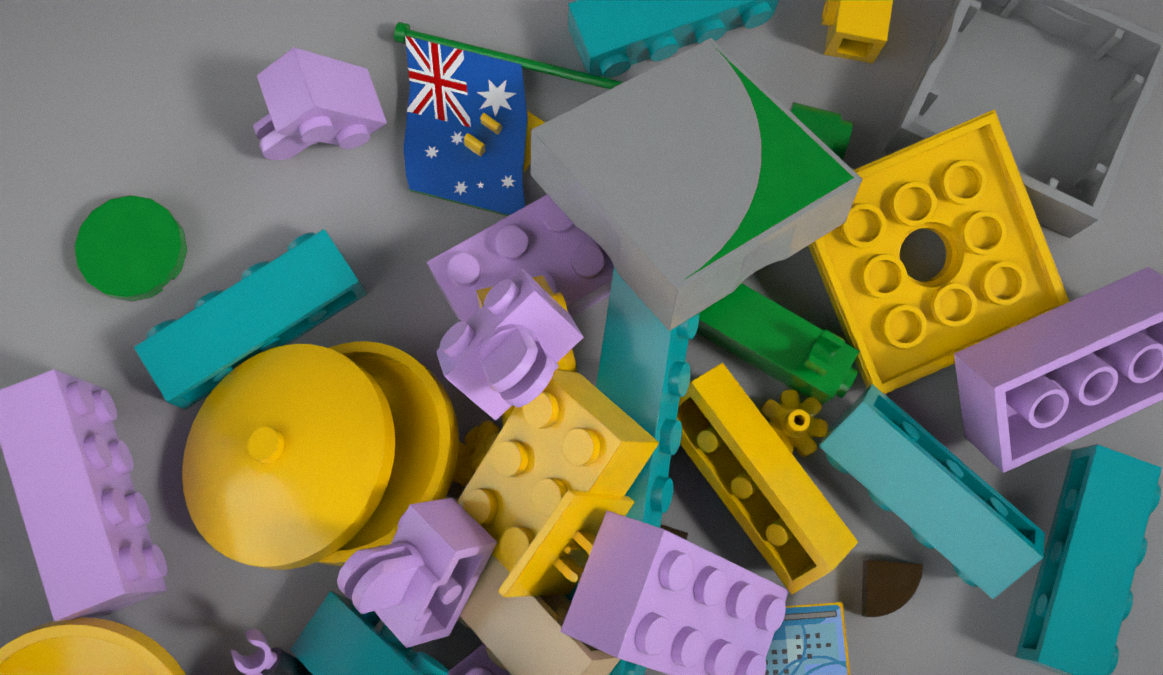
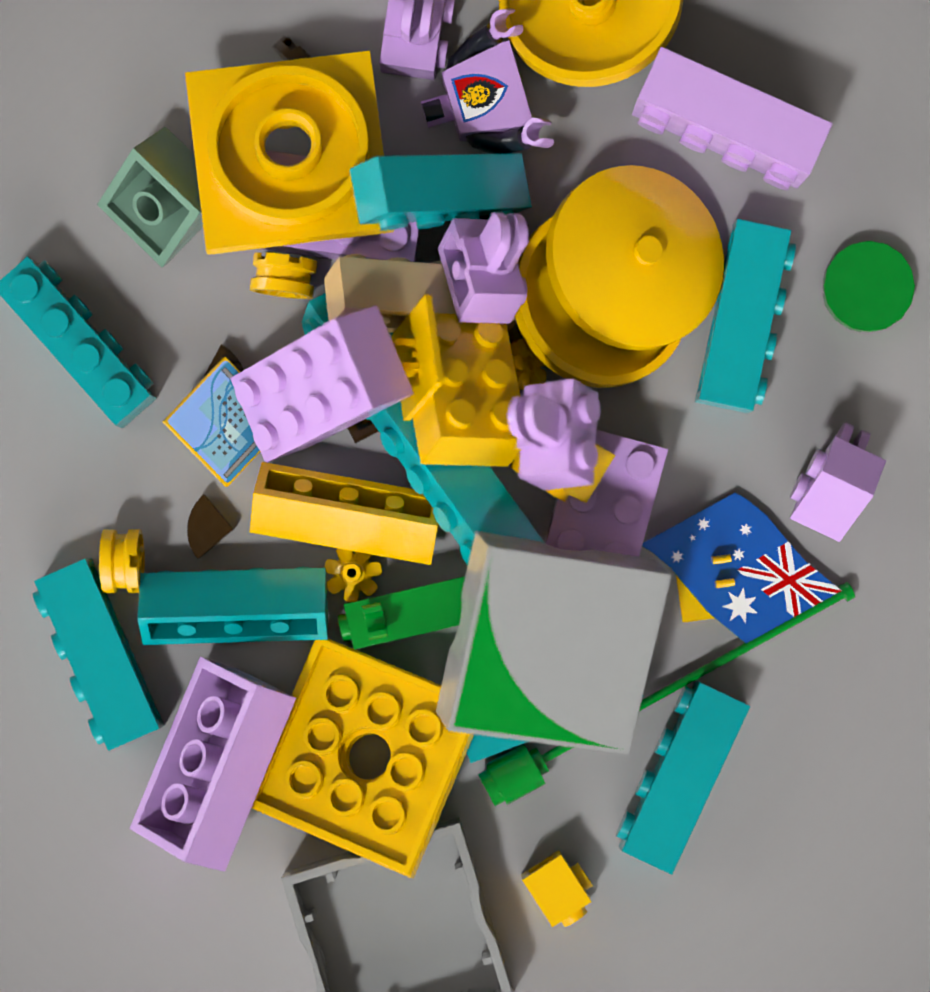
camera: 135 degrees right, 10 degrees up
(1000, 629) = (121, 560): none -> yellow wheel

